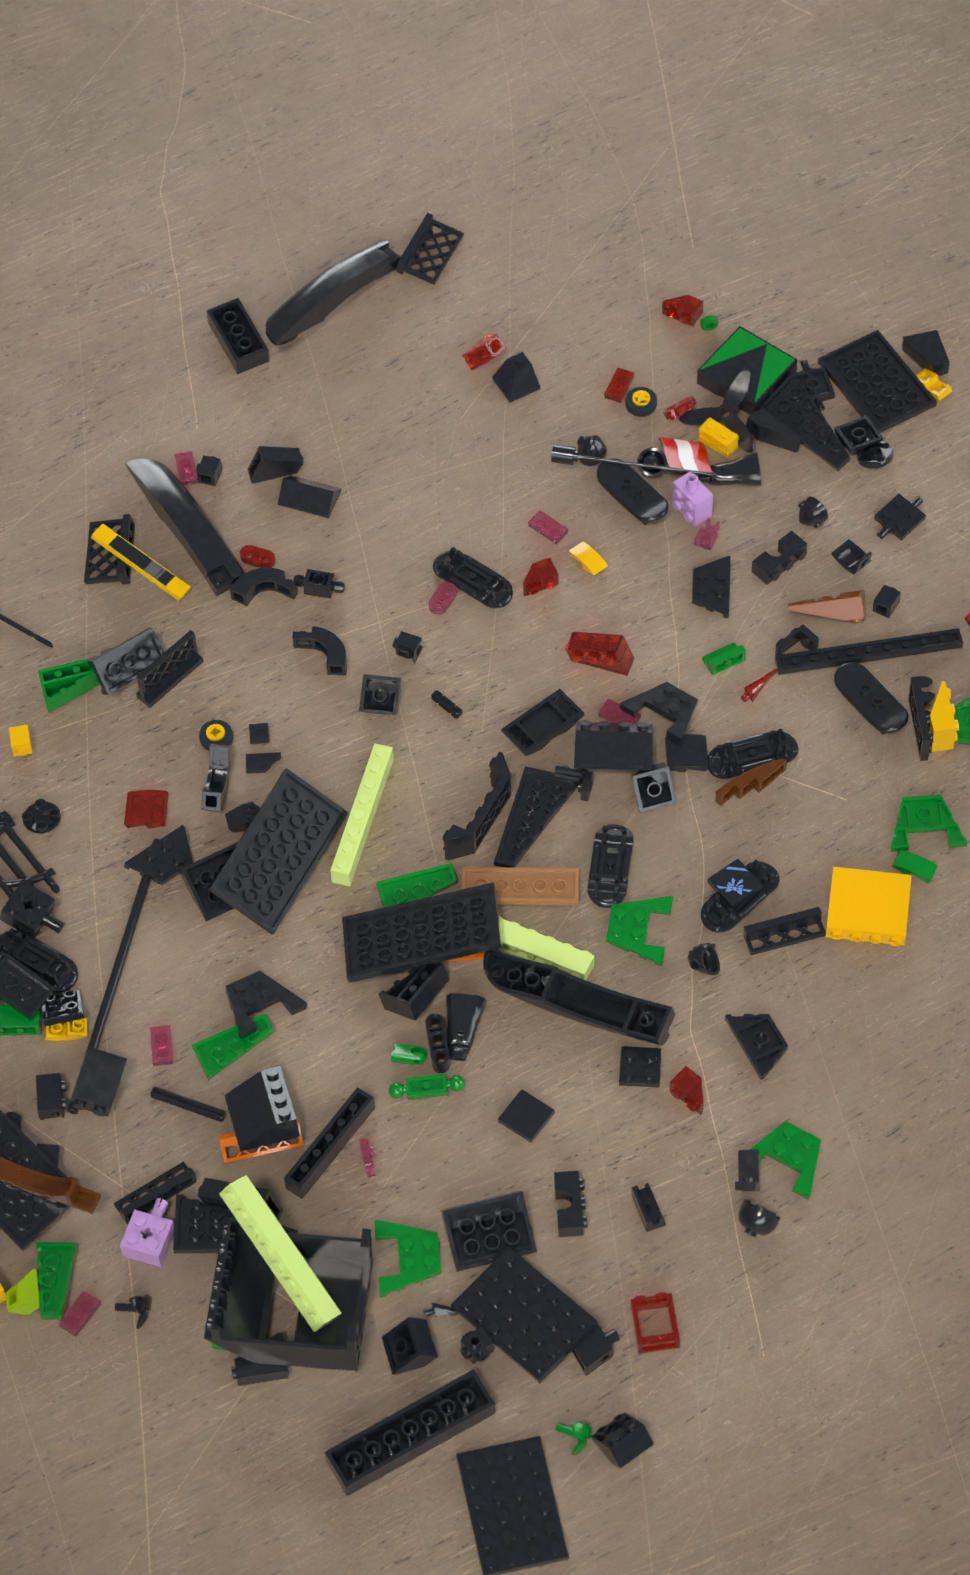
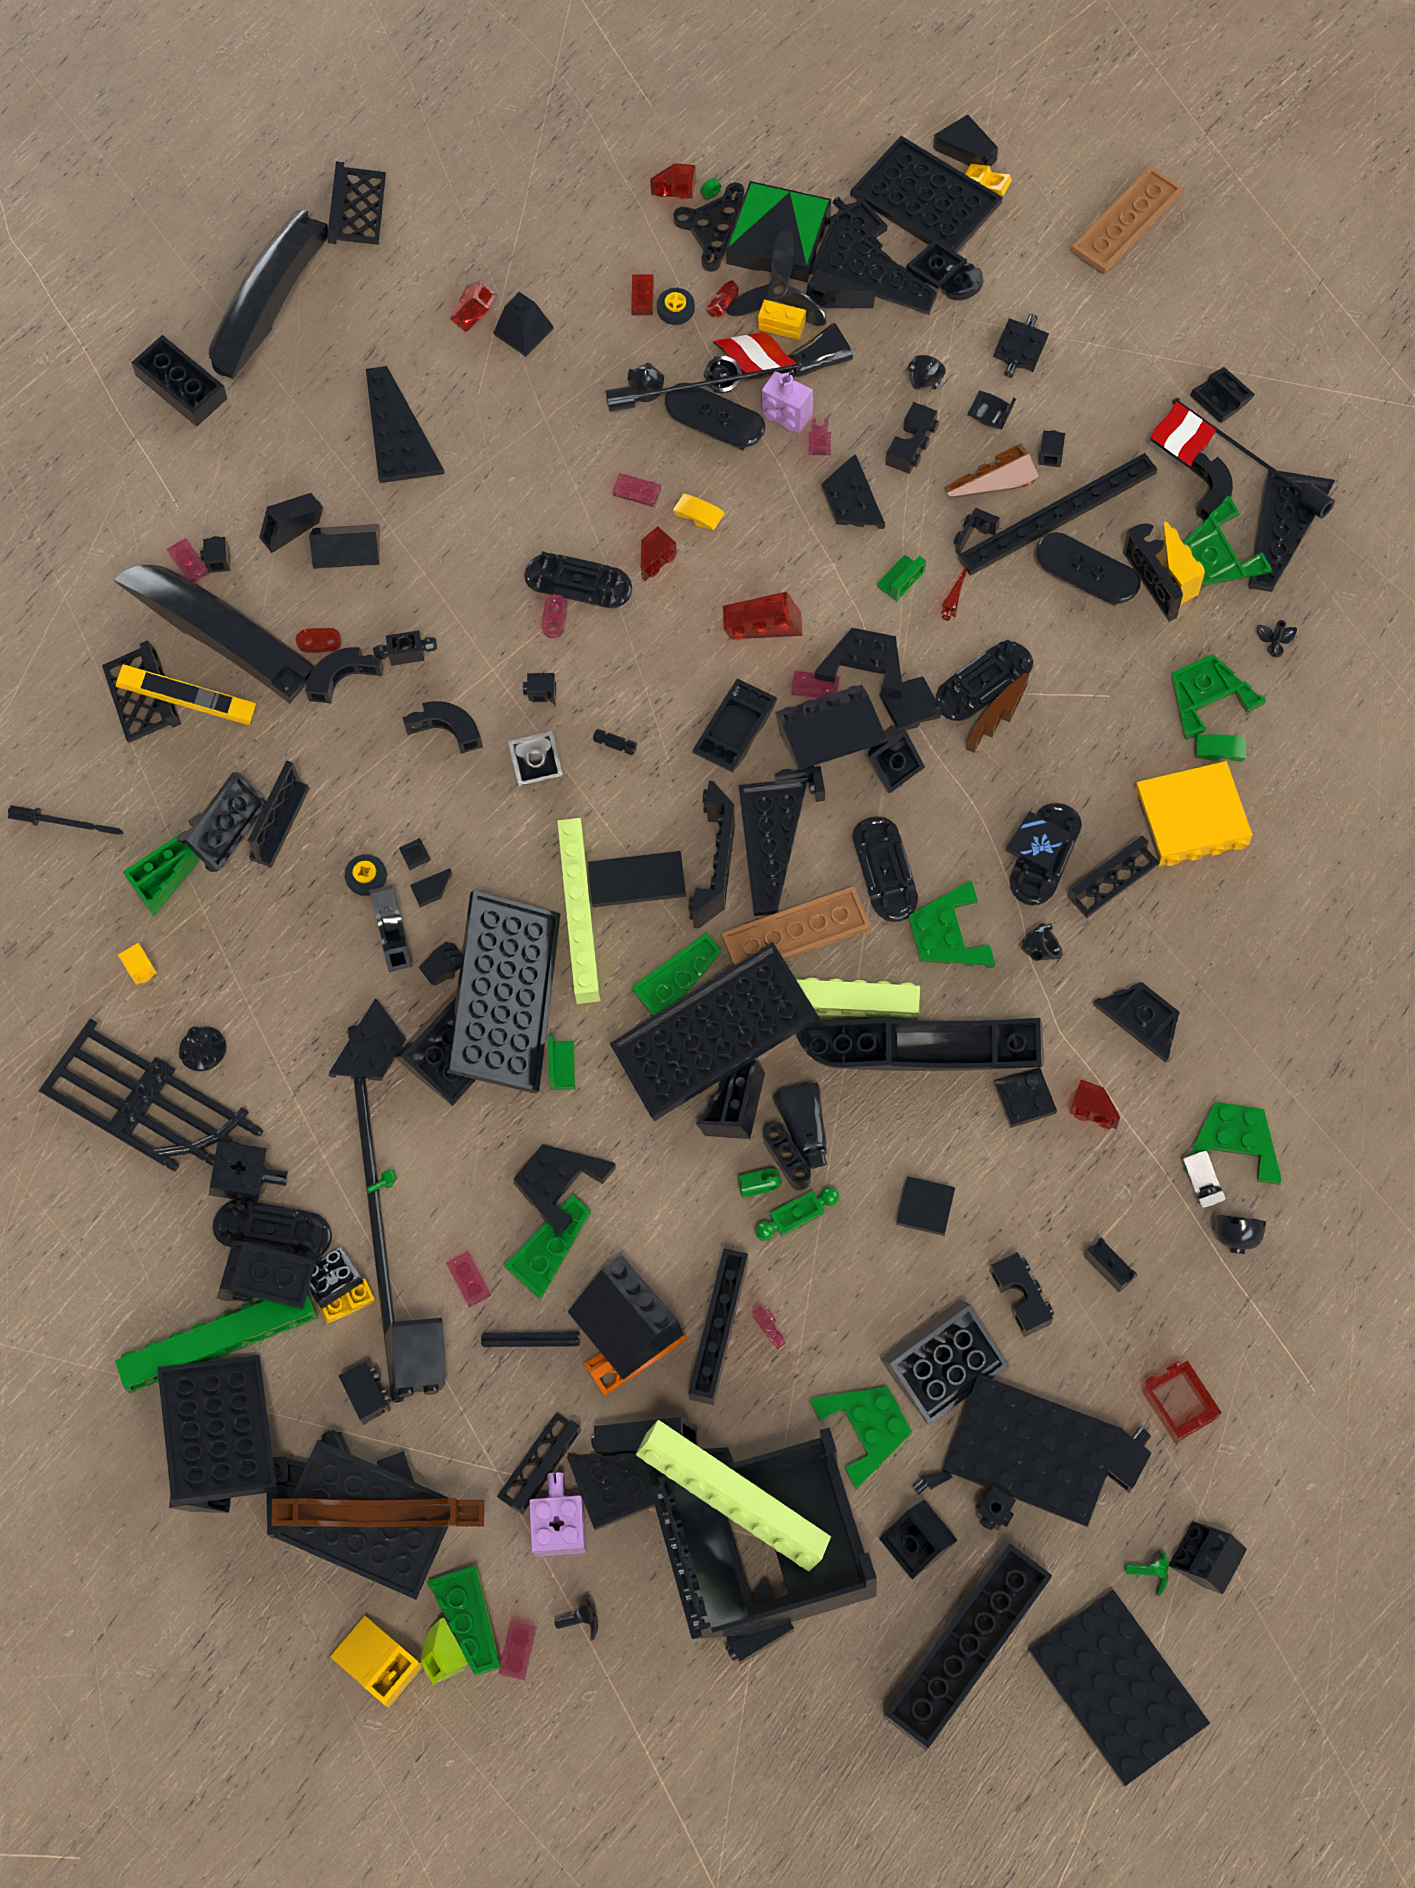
camera: 20 degrees left, 10 degrees up
(136, 954) = (388, 1179): none -> green hand
(146, 808) = (322, 993): clear red slope -> none
(298, 919) = (561, 1064): none -> green panel
(384, 430) = (398, 438): none -> black wing
(416, 807) = (636, 879): none -> black tile
(704, 344) = (710, 232): none -> black beam

